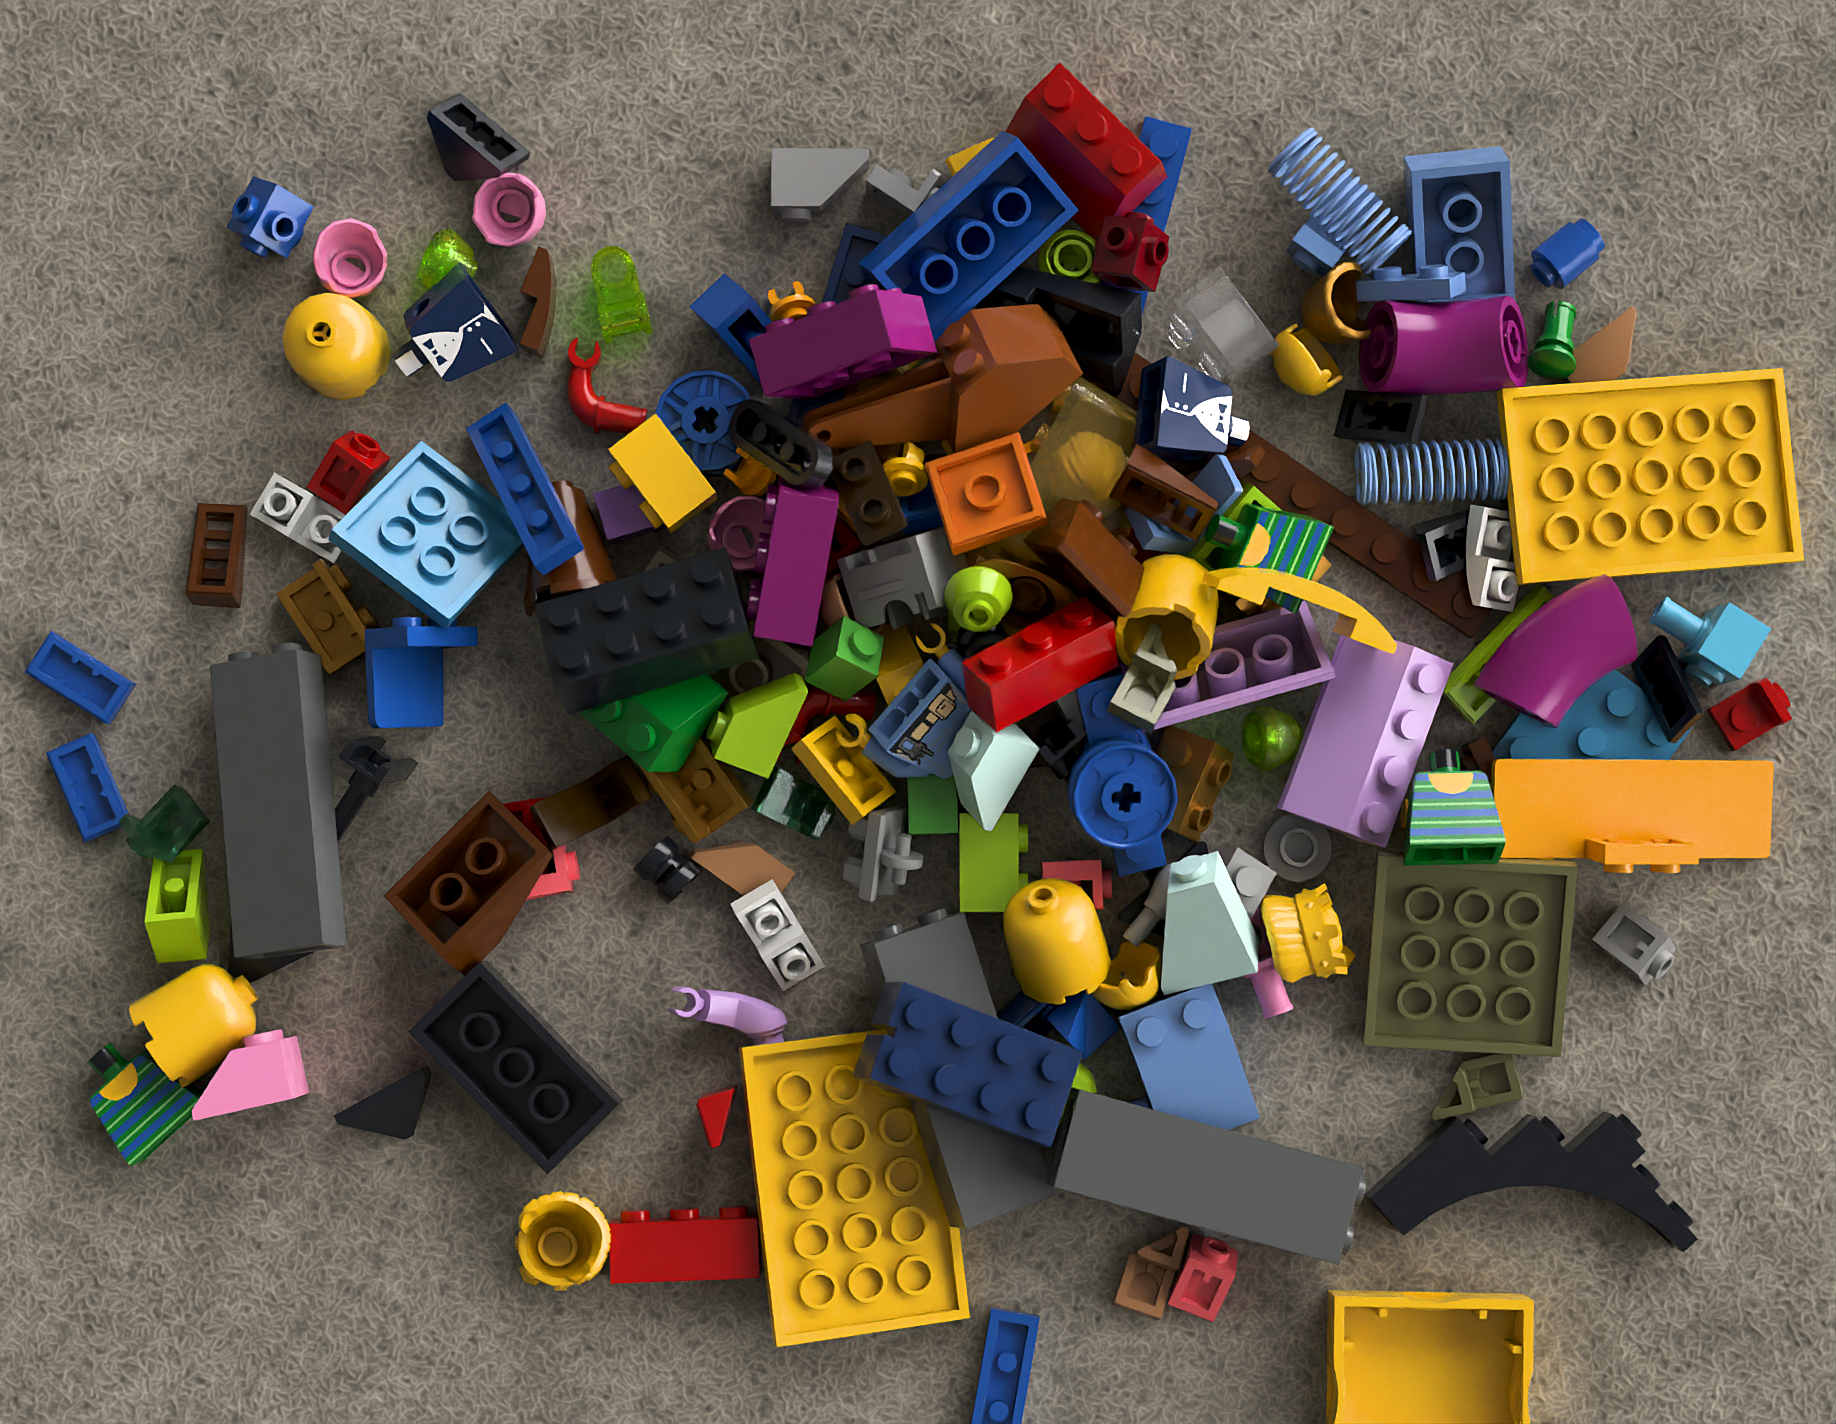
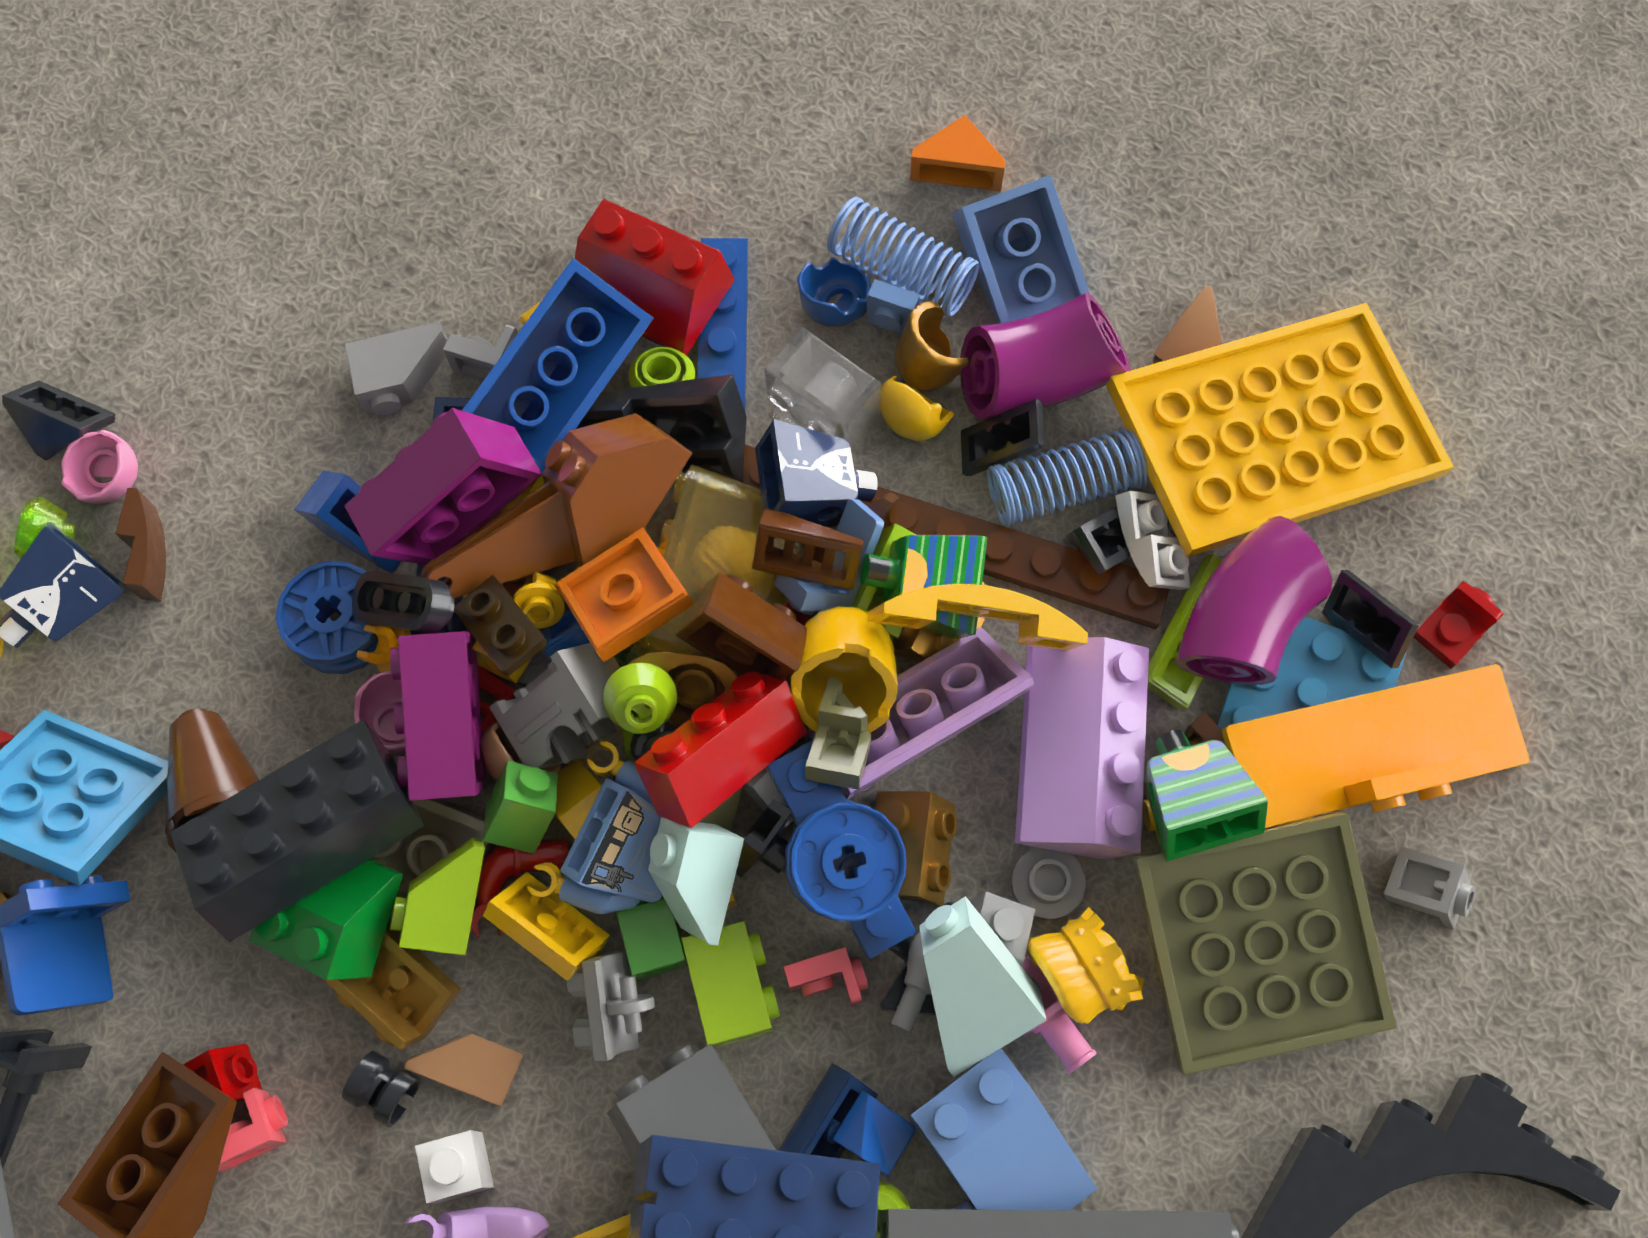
camera: 10 degrees left, 15 degrees down
(525, 489) = (150, 724): blue plate -> none
(590, 803) = (279, 1041): dark brown bracket -> none
(594, 409) = (220, 634): red piece -> none
(619, 298) = (226, 525): clear neon green piece -> none
(621, 514) = (273, 720): medium lavender brick -> none
(661, 474) = (288, 668): yellow brick -> none
(718, 953) = (454, 1166): none -> white brick
(777, 935) = (517, 1128): white slope -> none
(795, 804) = (504, 978): clear green bracket -> none
(1055, 940) = (818, 1047): yellow cylinder -> none
(1130, 252) = (714, 343): dark red brick -> none
(1141, 977) = (924, 1074): yellow hair -> none
(1270, 737) = (986, 775): clear neon green cone -> none
(1272, 231) = (834, 278): none -> blue hair
(1428, 97) = (958, 158): none -> orange slope
(1430, 283) = (1011, 303): medium blue plate -> none
(1480, 1084) = (1320, 1084): olive slope -> none
(1554, 349) = (1147, 337): green pin -> none
(1567, 254) = (1130, 256): blue brick -> none
(1715, 646) = (1405, 559): medium azure brick -> none

